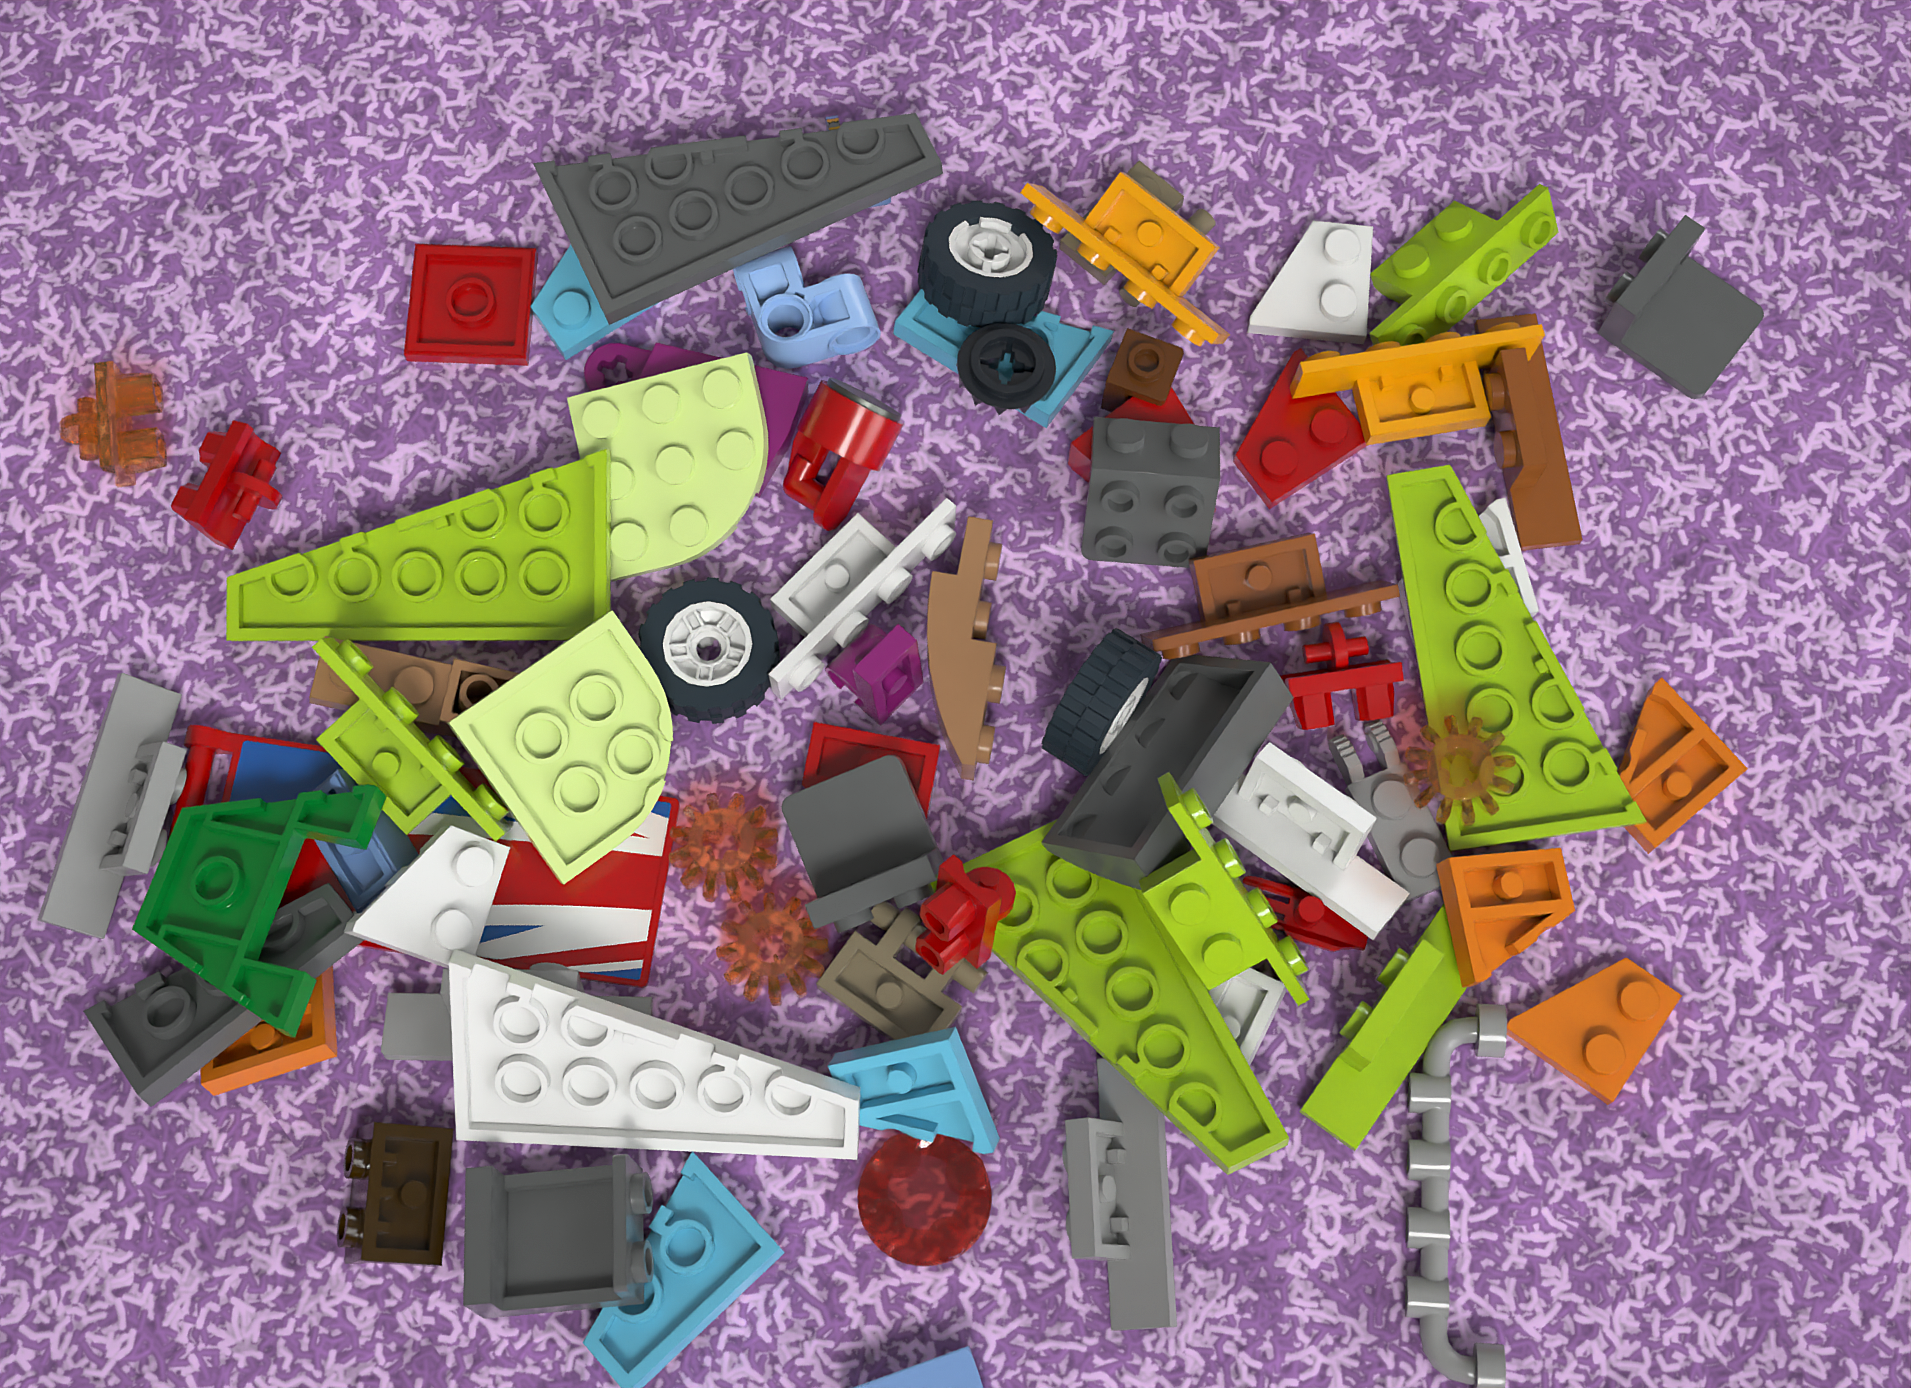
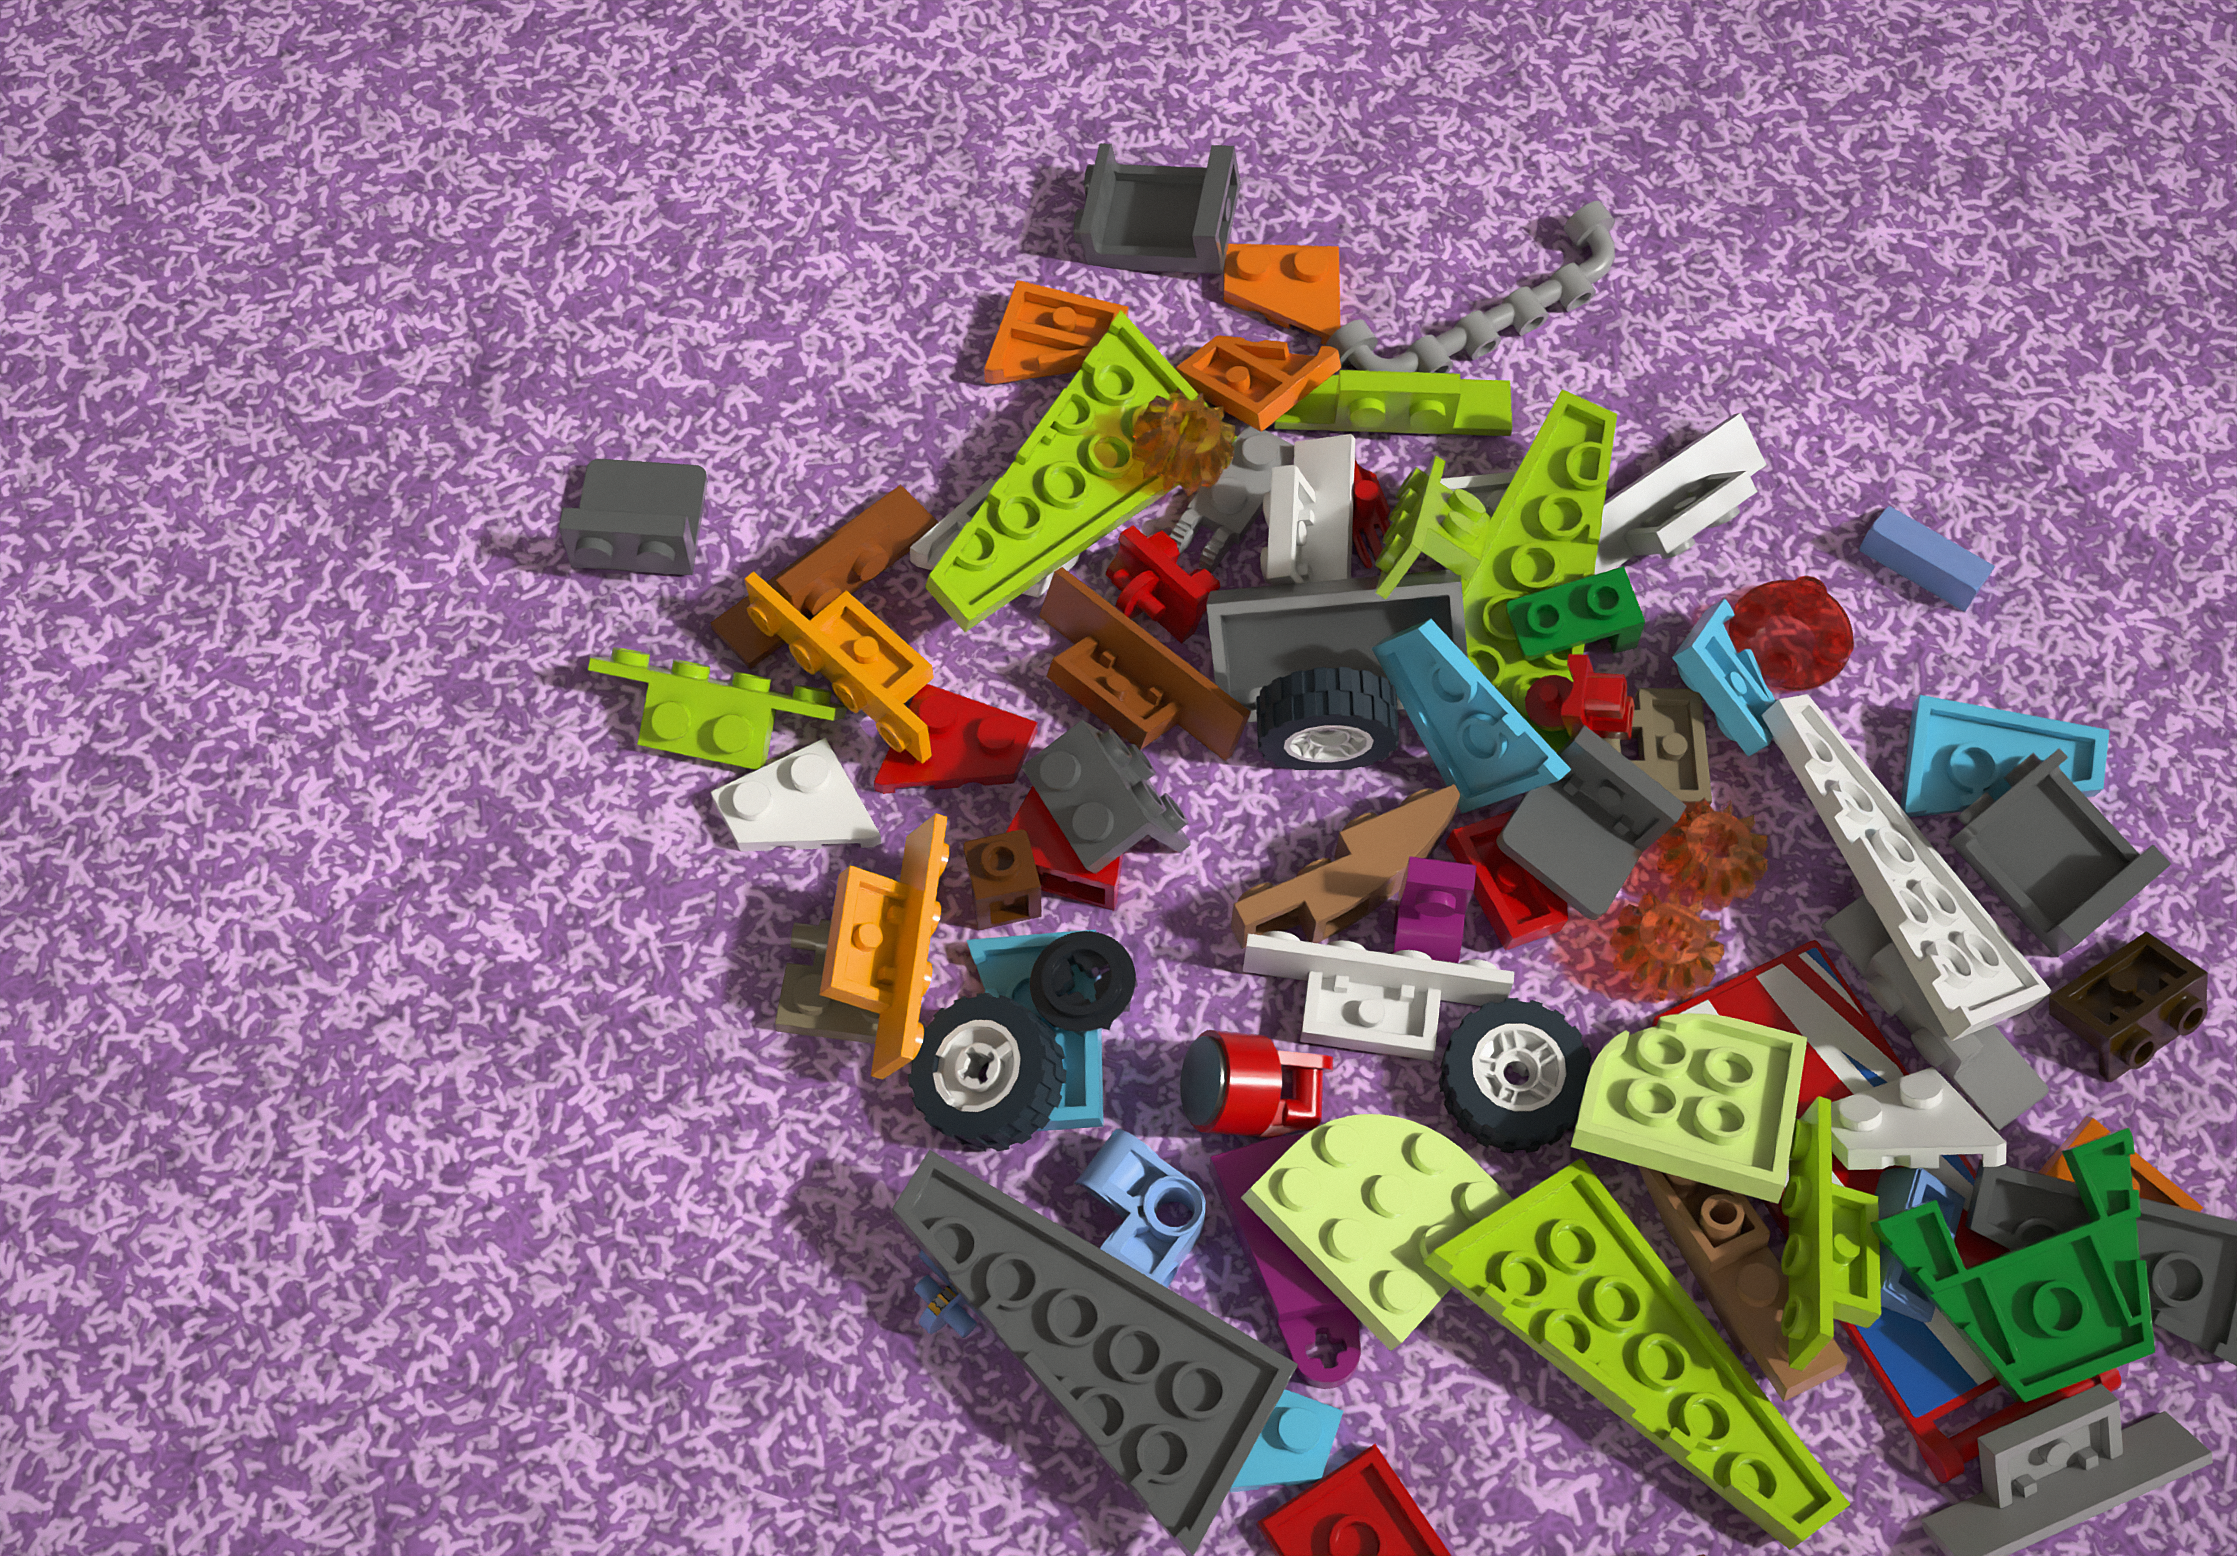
camera: 125 degrees left, 10 degrees down
(1024, 803) = (1465, 720): none -> medium azure wing
(1058, 996) = (1578, 615): none -> green bracket
(1755, 952) = (1158, 213): none -> dark grey panel

